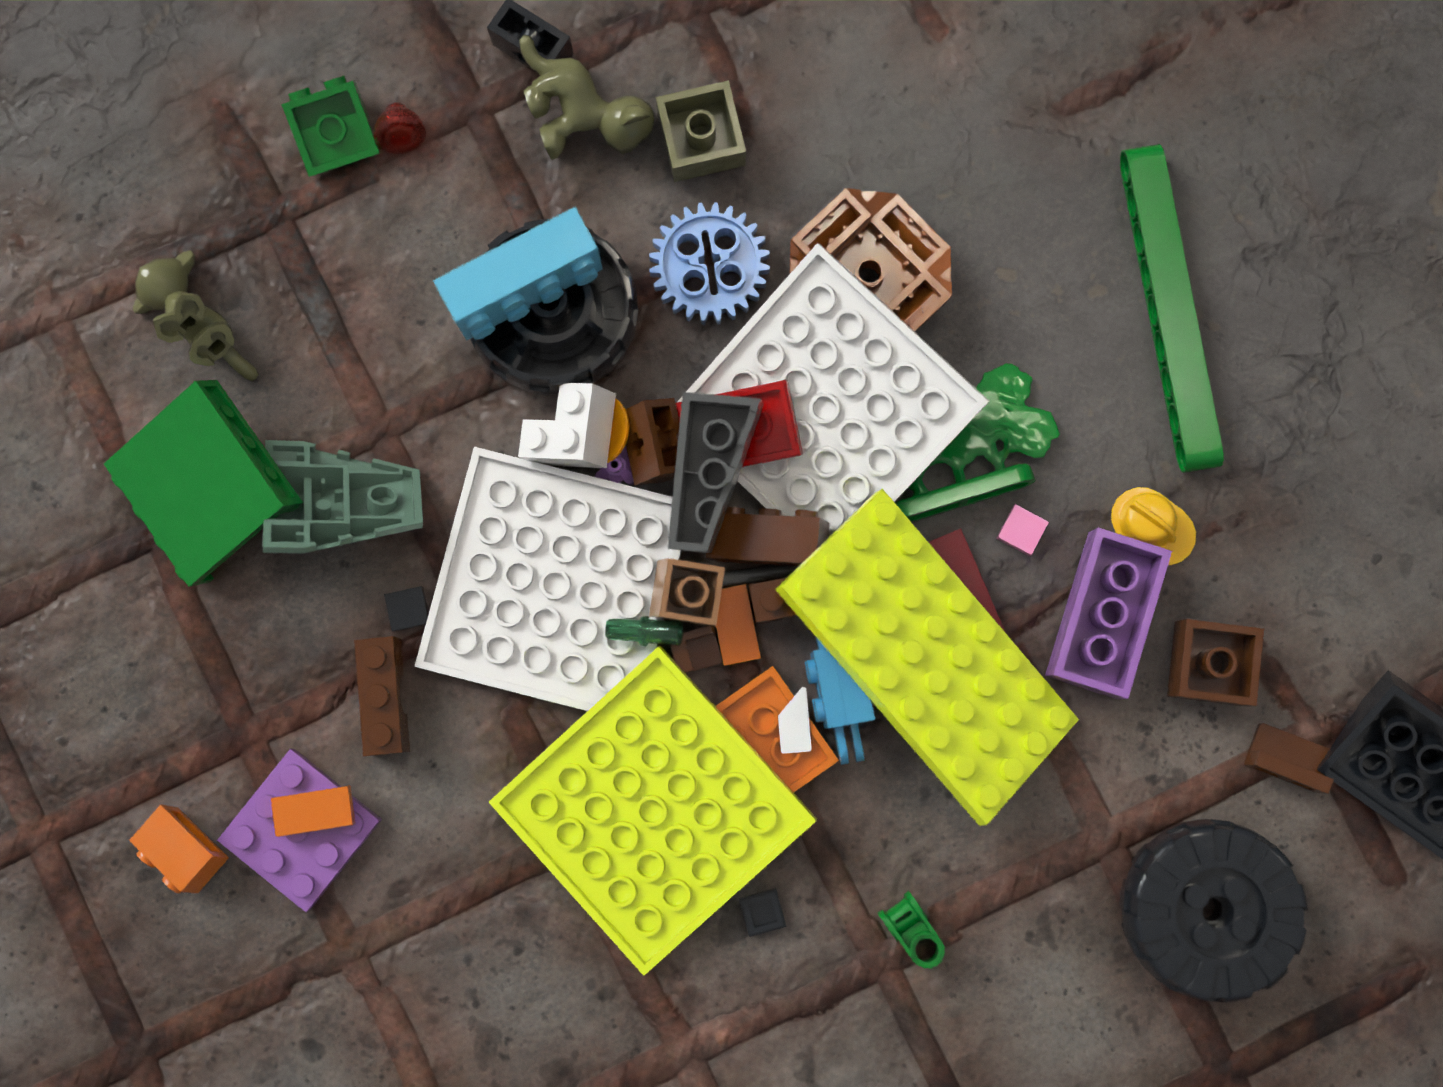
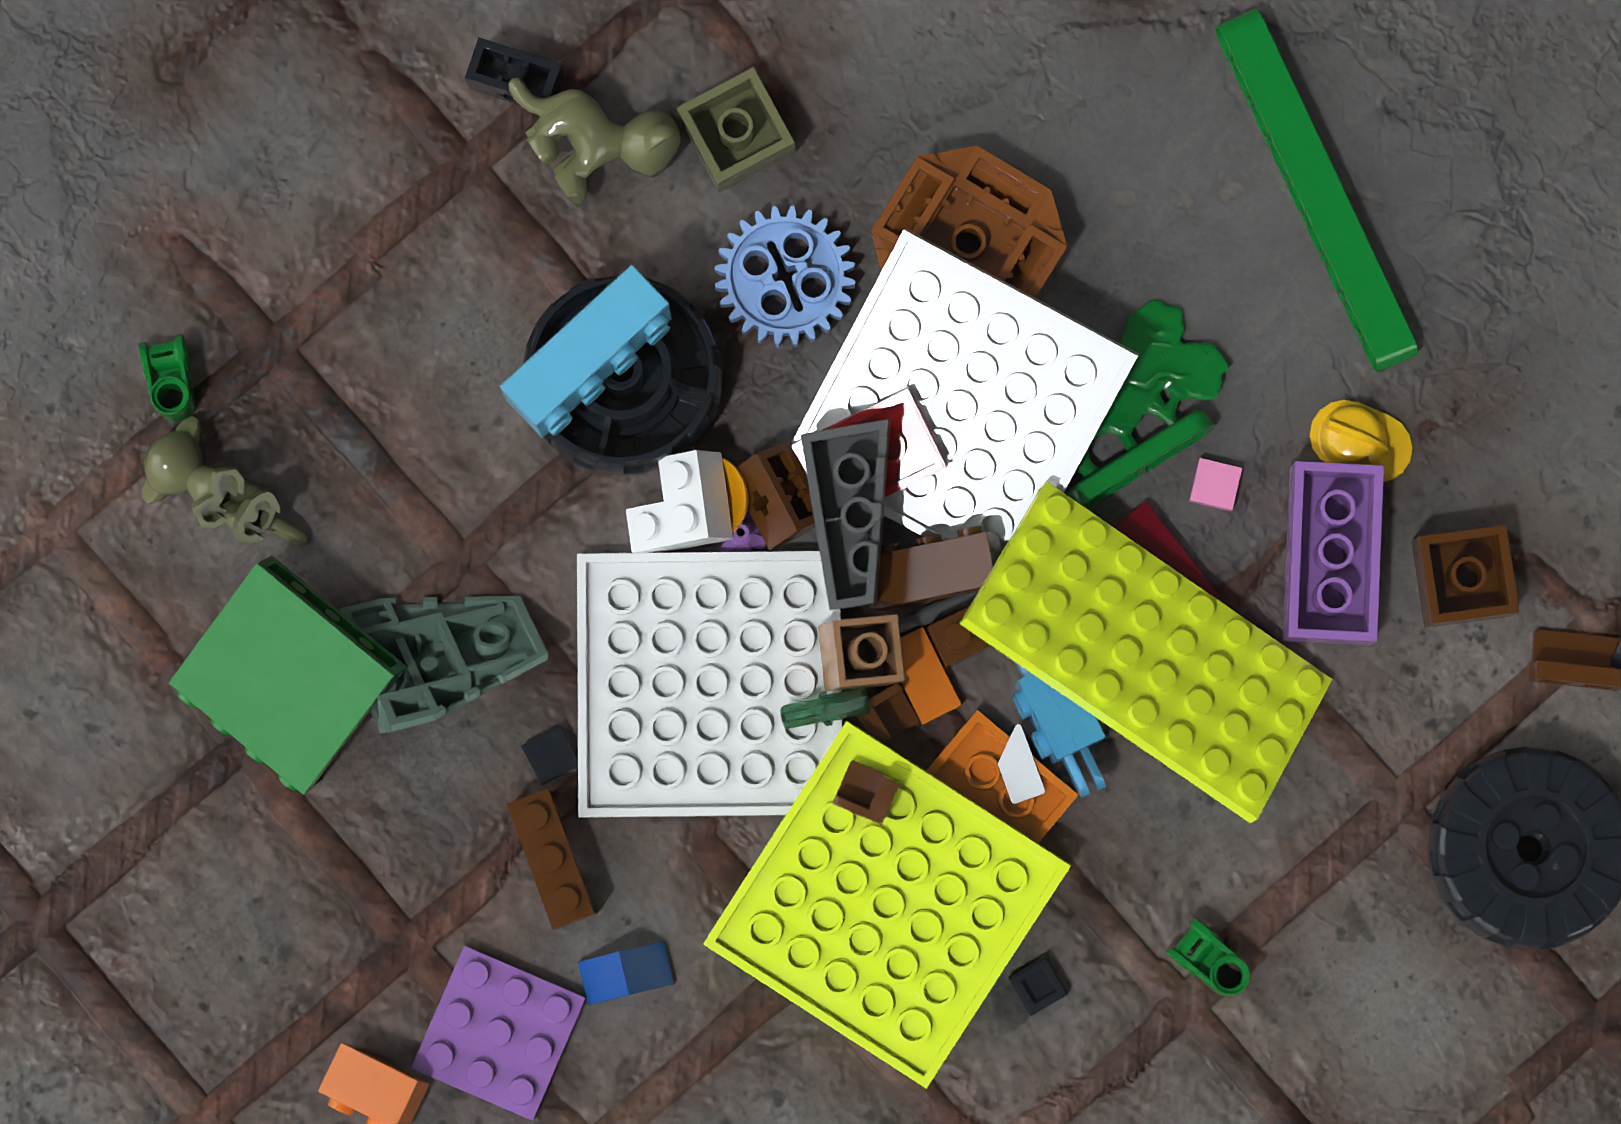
camera: 15 degrees left, 0 degrees up
(179, 207) = (168, 369): none -> green piece
(313, 811) = (511, 1005): orange tile -> none
(330, 126) = (313, 232): green plate -> none
(399, 129) = (391, 215): clear red brick -> none
(420, 808) = (625, 973): none -> blue slope
(658, 712) = (866, 792): none -> reddish brown panel

